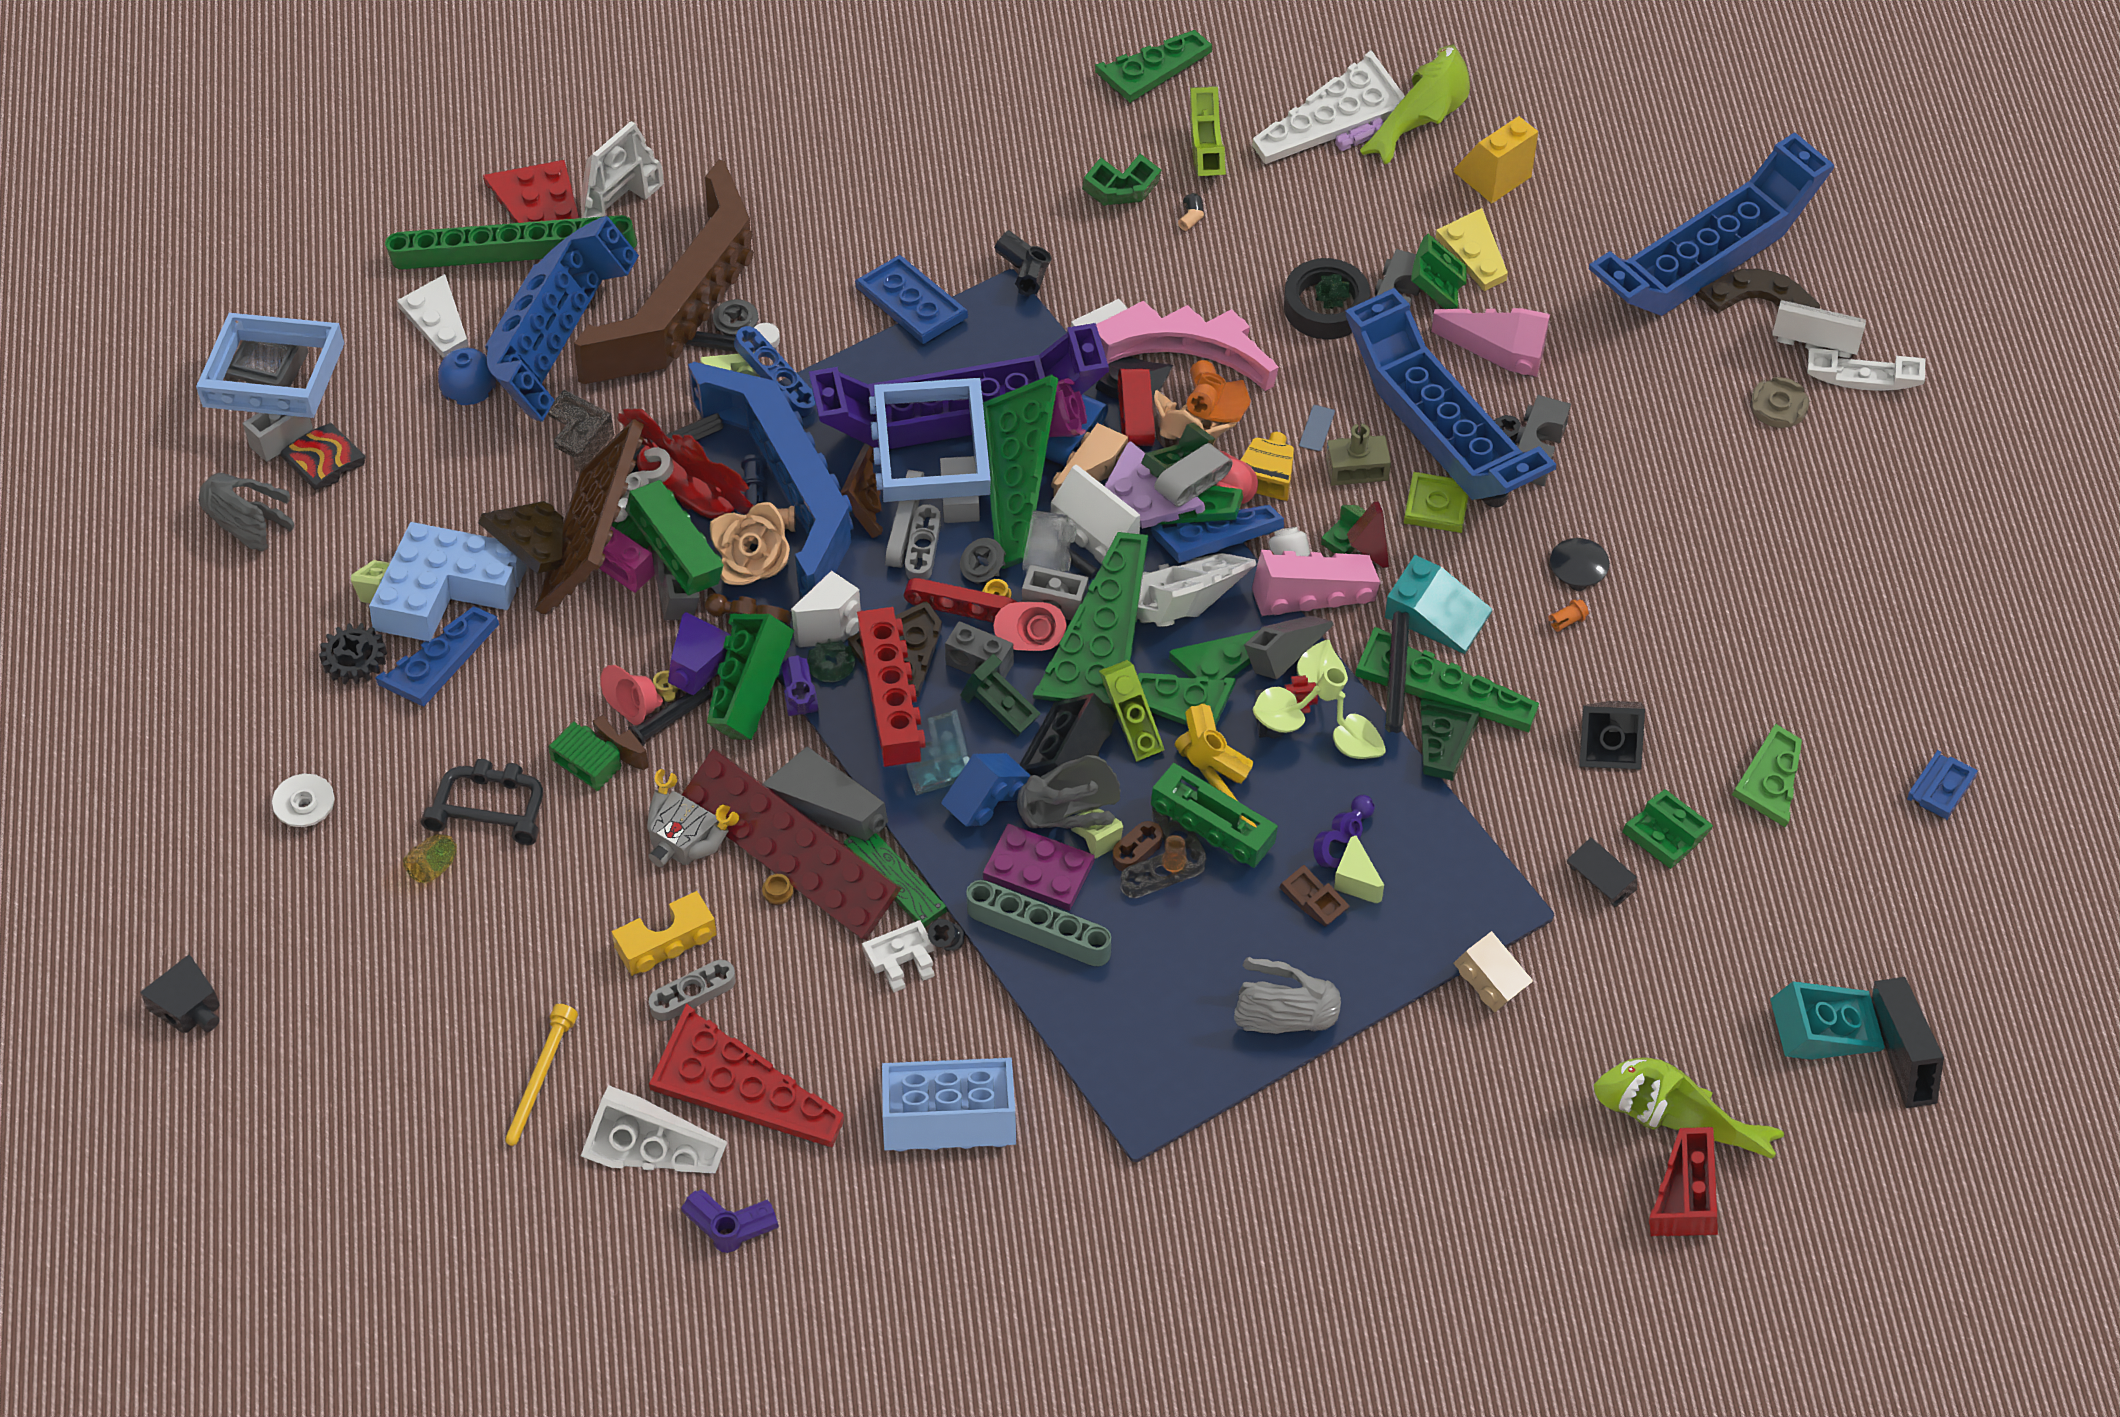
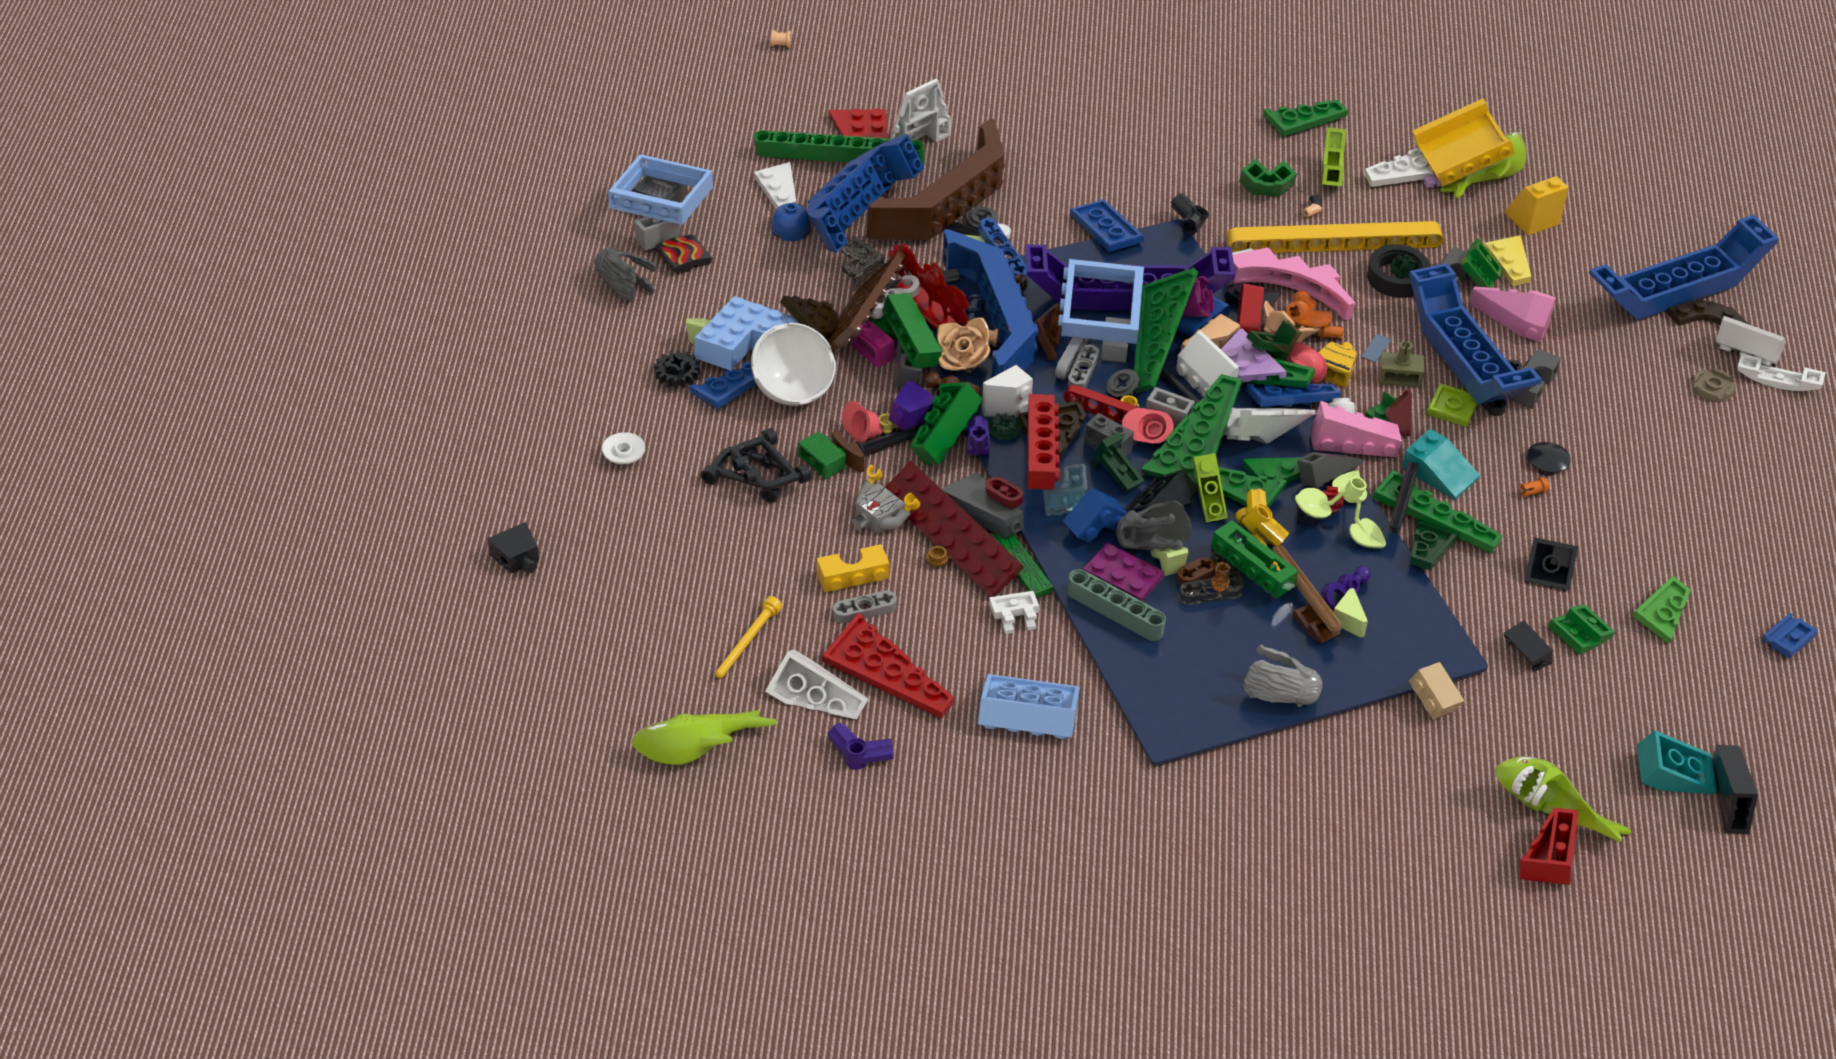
camera: 10 degrees right, 10 degrees down
(391, 66) = (781, 38): none -> light nougat bush
(430, 858) = (702, 496): clear yellow rock -> none
(492, 1258) = (692, 736): none -> lime piece
(494, 812) = (767, 440): none -> black bar
(517, 624) = (793, 364): none -> white piece
(810, 420) = (1022, 281): none -> reddish brown plate
(855, 777) = (1004, 492): none -> dark red plate
(937, 936) = (1049, 602): black bush -> none
(1049, 541) = (1172, 375): clear brick -> none
(1193, 475) = (1281, 351): light grey beam -> none
(1230, 259) = (1335, 237): none -> yellow beam
(1255, 415) = (1331, 332): none -> orange pin
(1295, 848) = (1311, 593): none -> medium nougat axle
(1380, 79) = (1462, 142): none -> yellow panel

